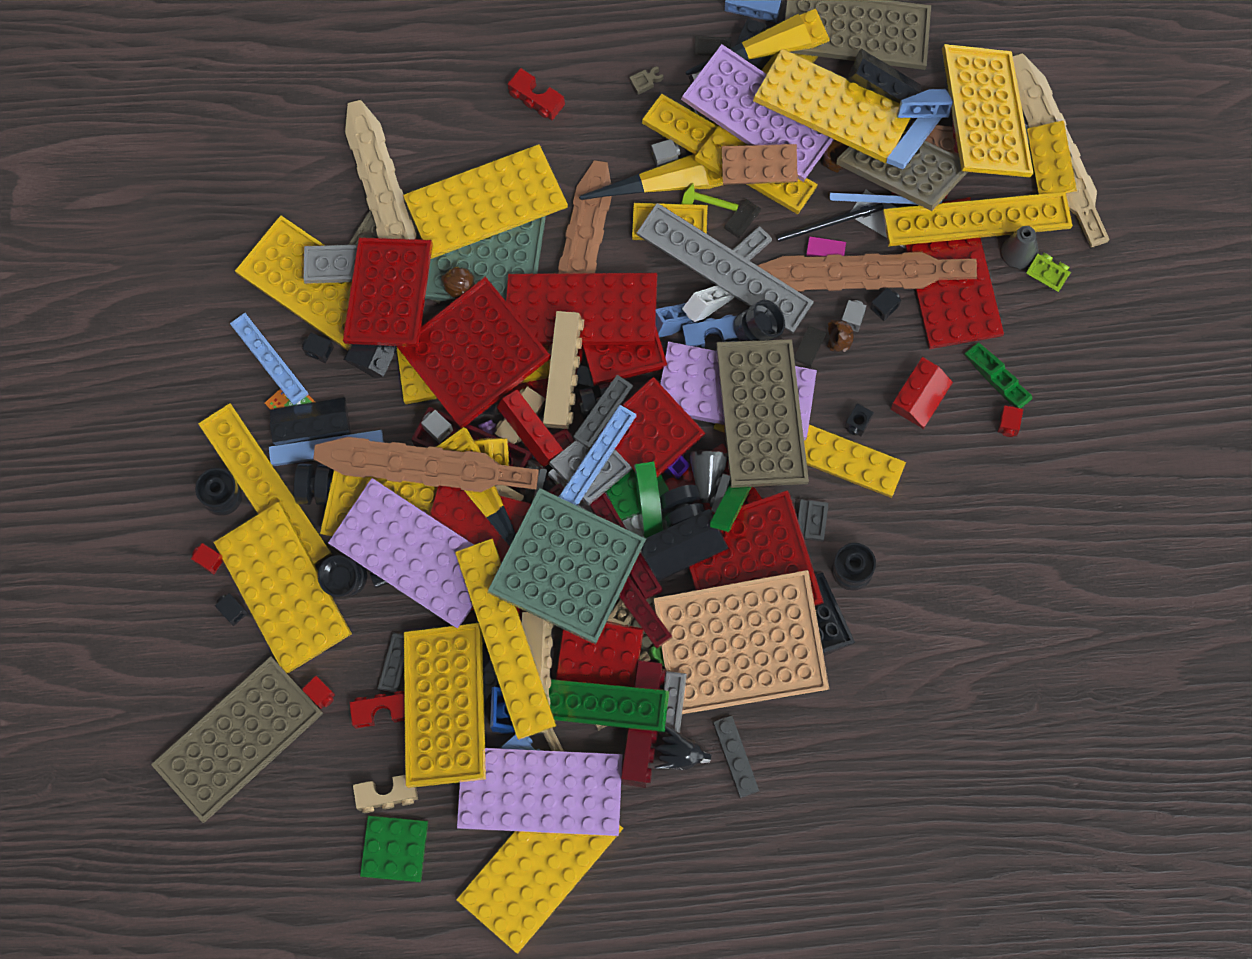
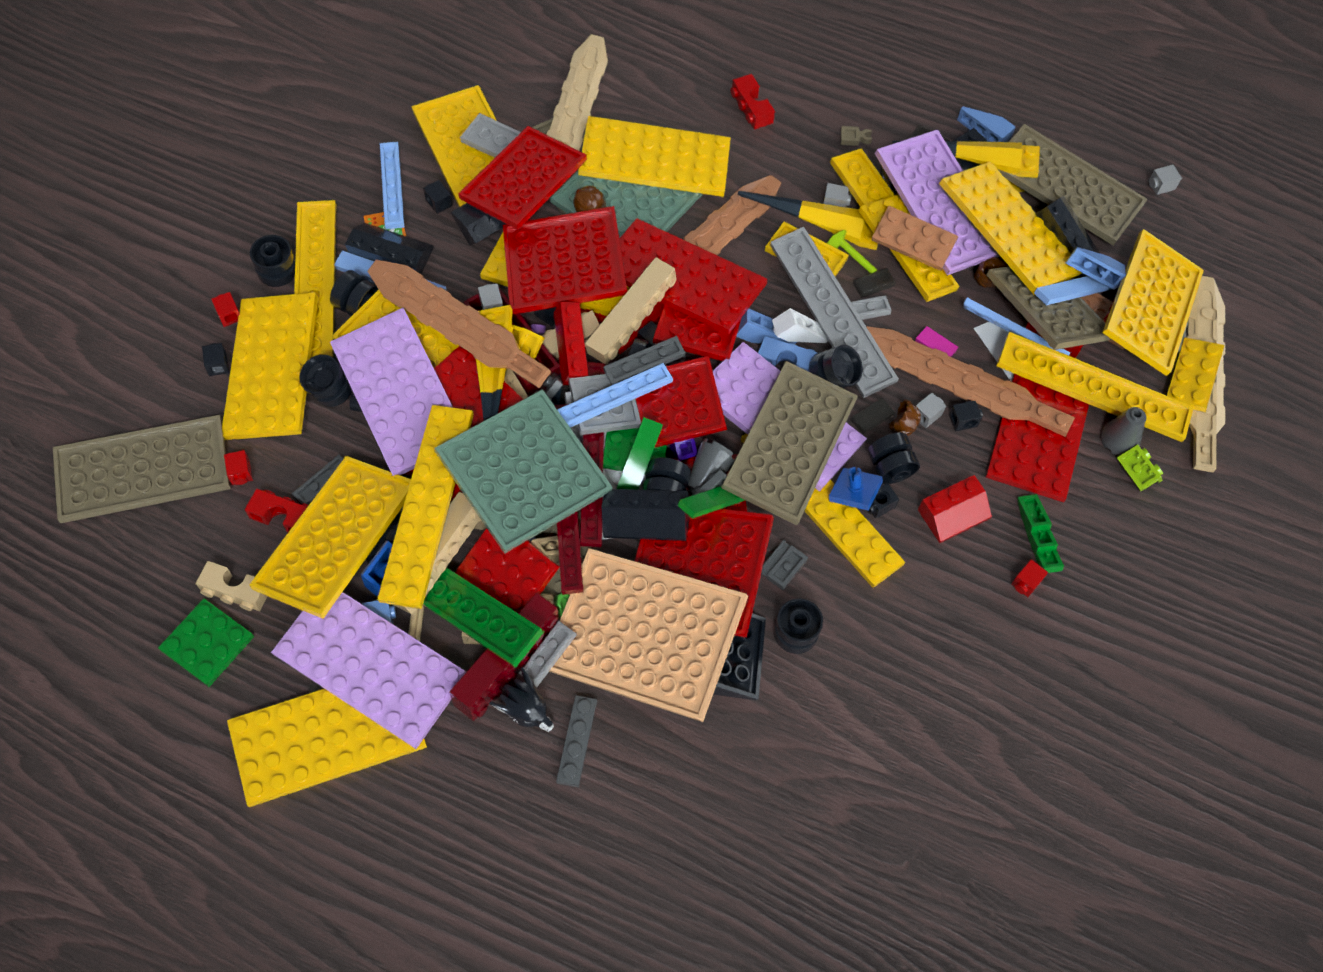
camera: 20 degrees right, 10 degrees down
(834, 423) = (856, 488): none -> blue tile
(854, 381) = (893, 458): none -> black wheel
(864, 211) = (989, 331): black bar -> none

